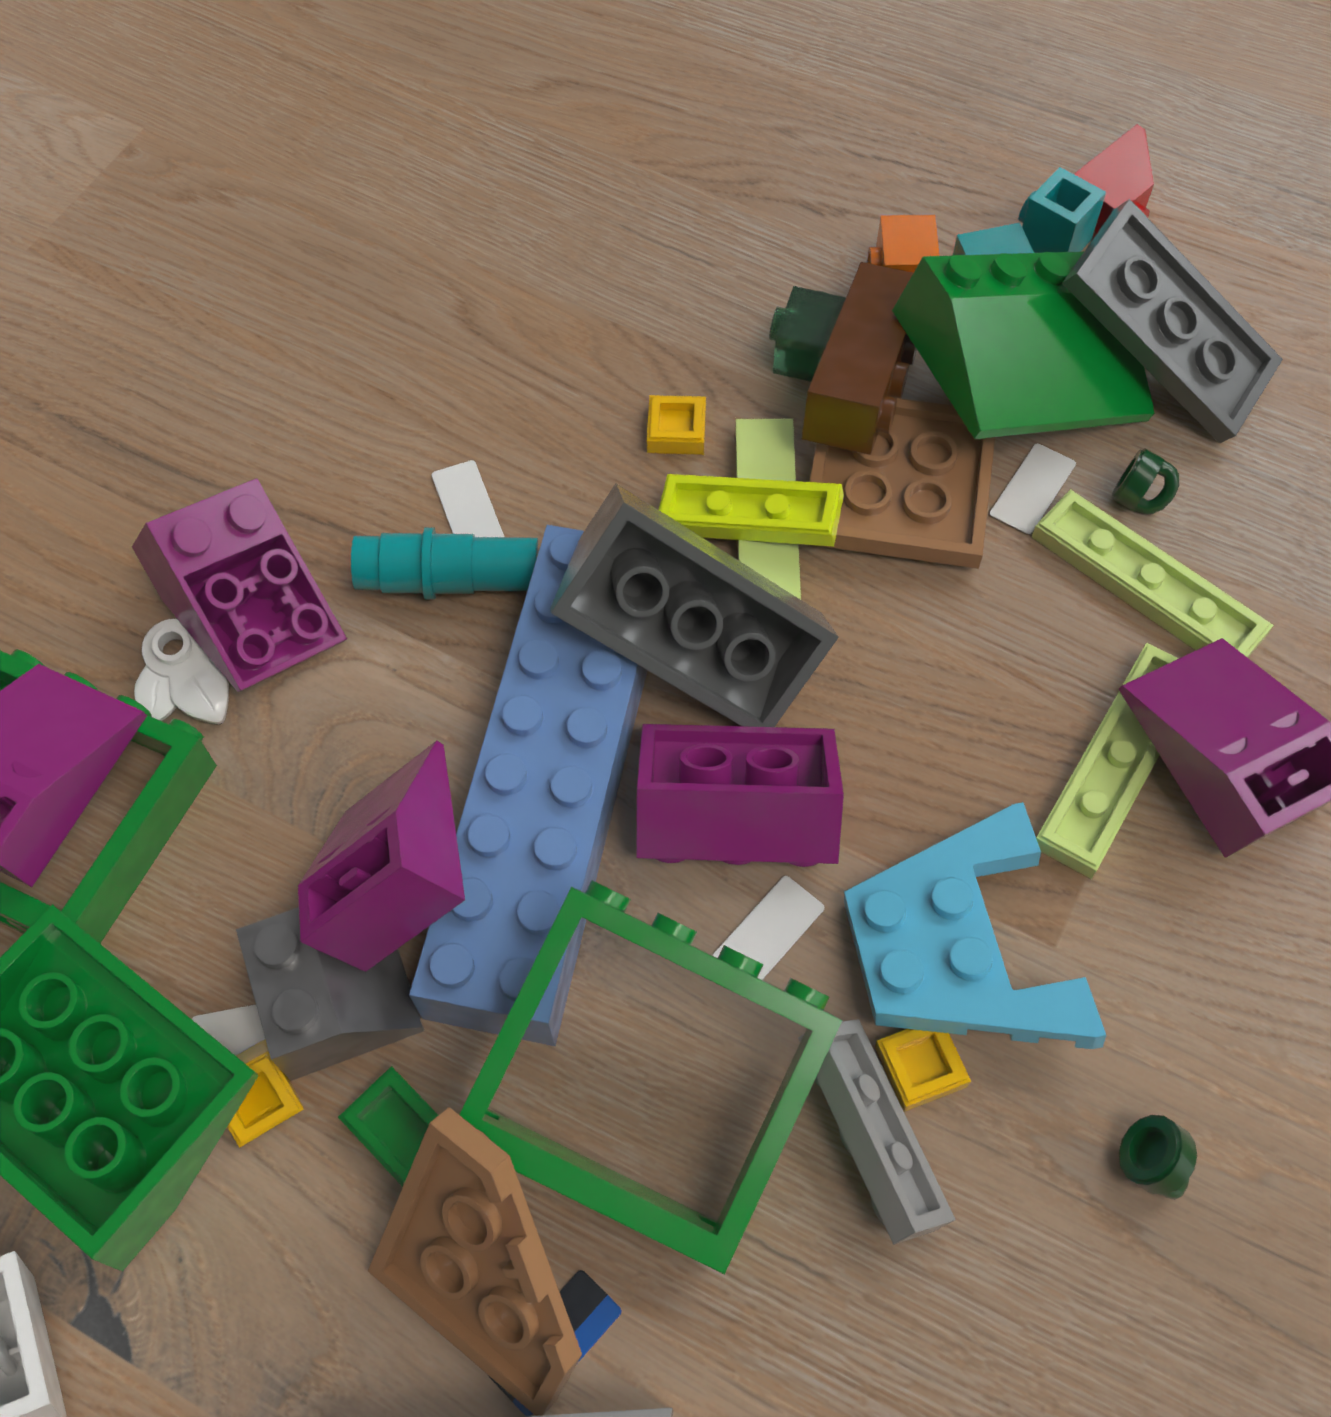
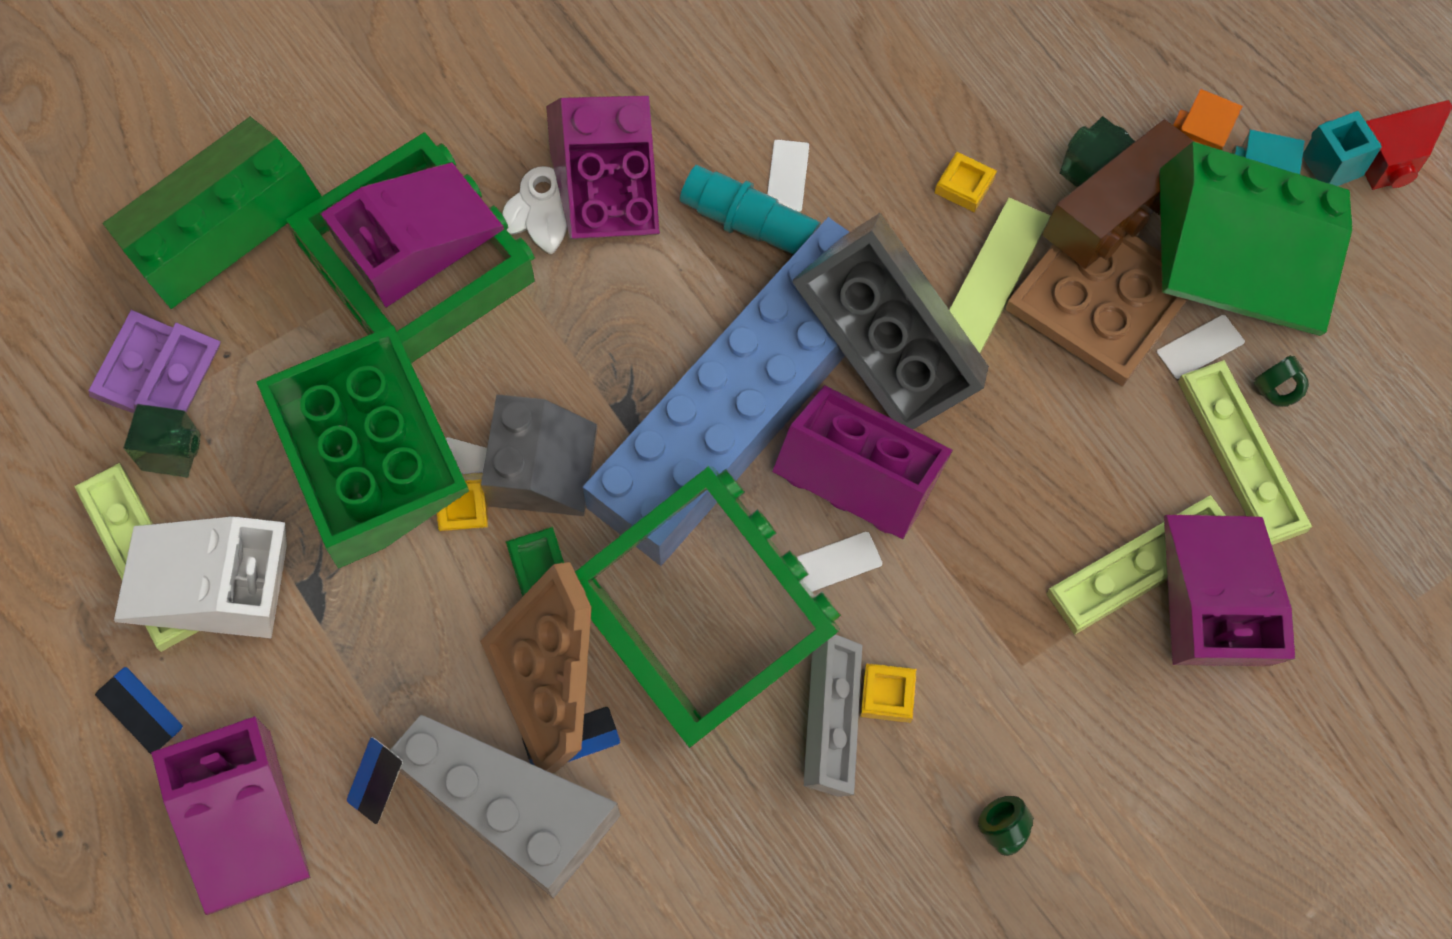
camera: 25 degrees right, 5 degrees up
(385, 867) = (607, 398): magenta slope -> none
(754, 508) = (980, 269): neon yellow tile -> none
(934, 951) = (936, 621): medium azure wing -> none
(1173, 321) = (1371, 270): dark grey plate -> none

